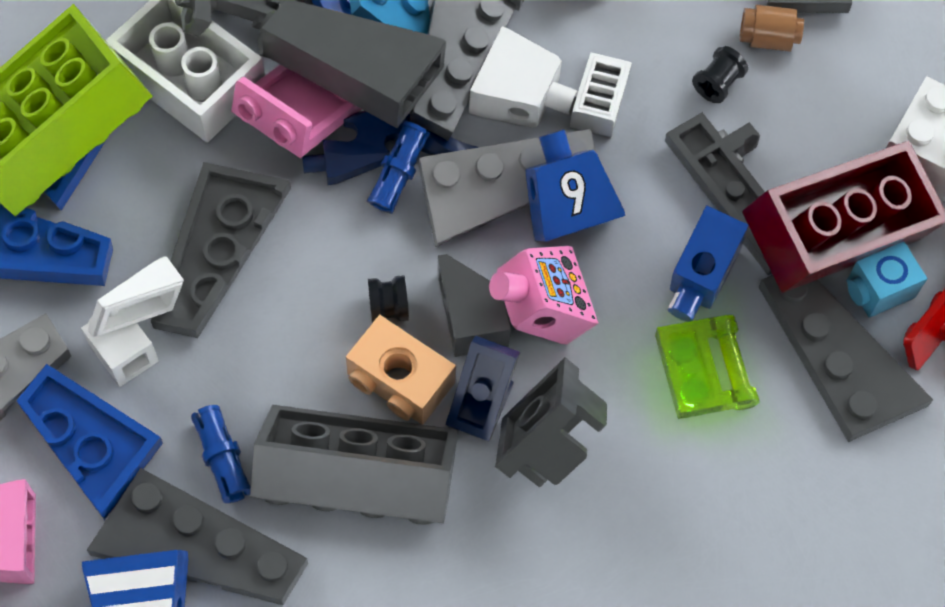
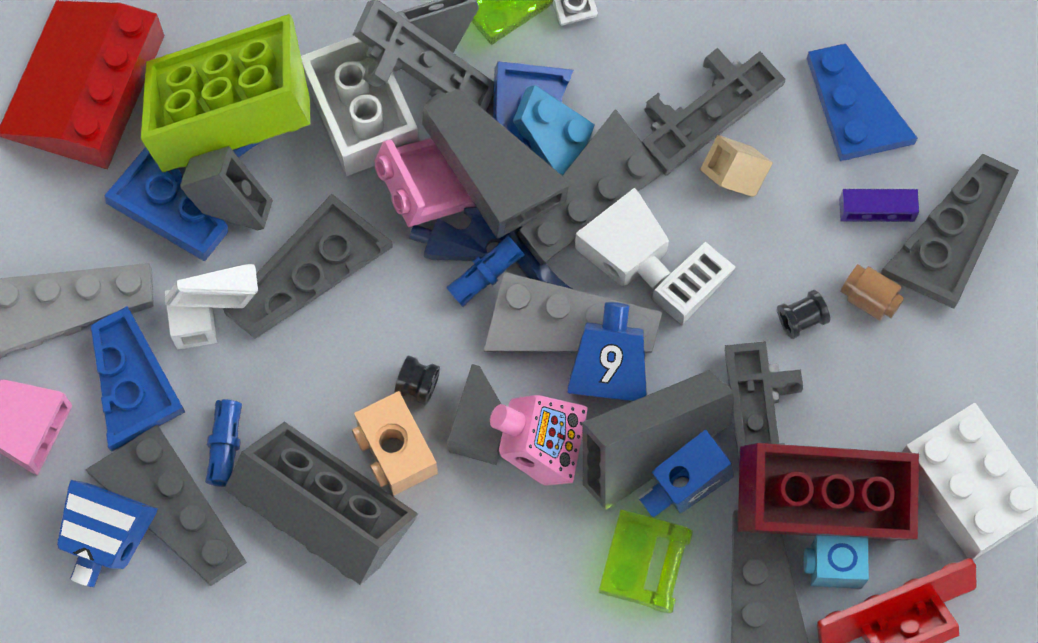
camera: 30 degrees right, 5 degrees up
(91, 202) = (226, 189): none -> dark grey slope
(482, 388) = (451, 491): dark blue slope -> none
(537, 428) = (491, 534): dark grey panel -> none
(641, 247) = (639, 436): none -> dark grey slope

